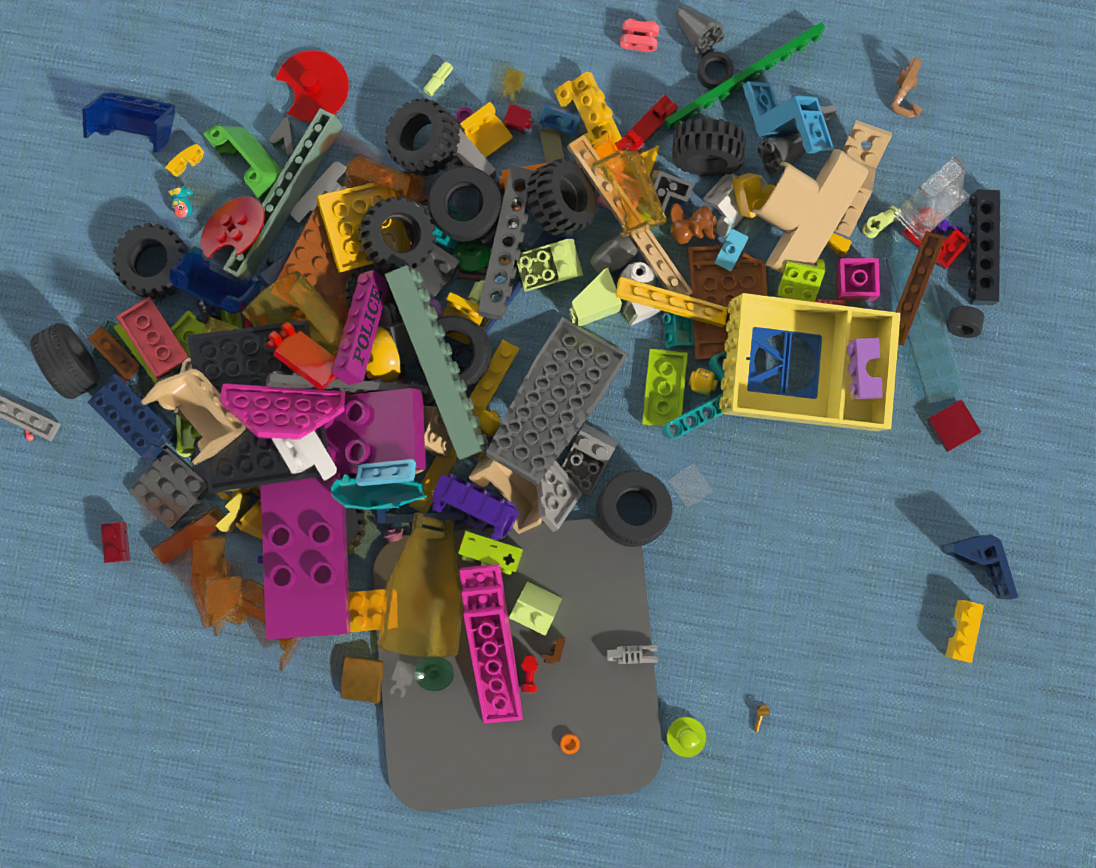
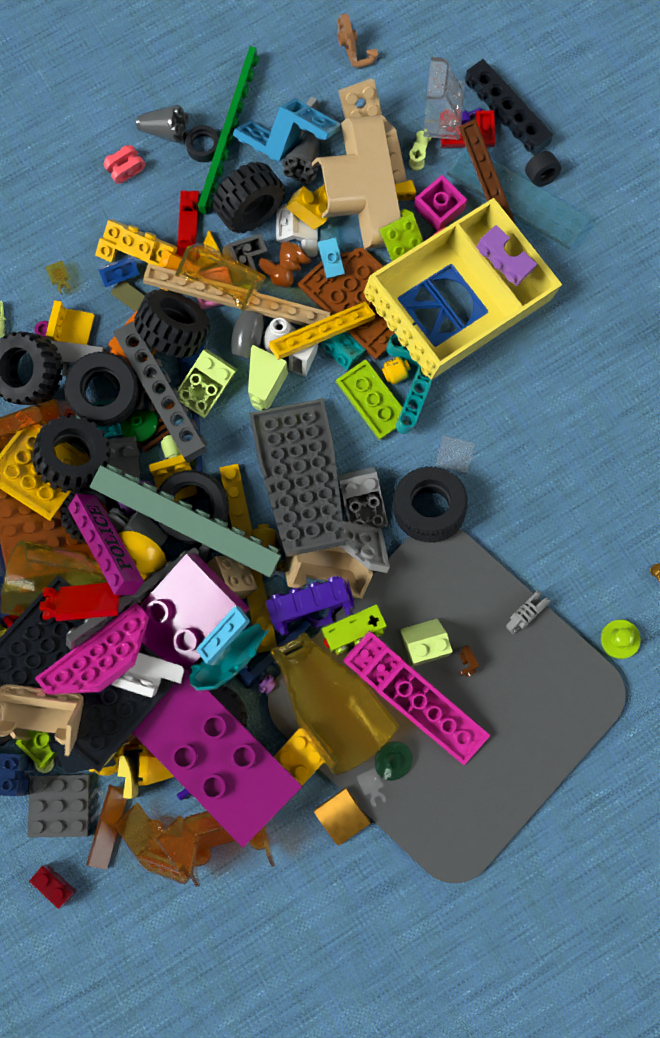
camera: 40 degrees left, 5 degrees down
(518, 119) = (86, 297): dark red brick -> none
(529, 666) = (459, 689): red leg -> none
(569, 743) = (541, 721): orange tile -> none
(954, 425) = (601, 248): dark red slope -> none

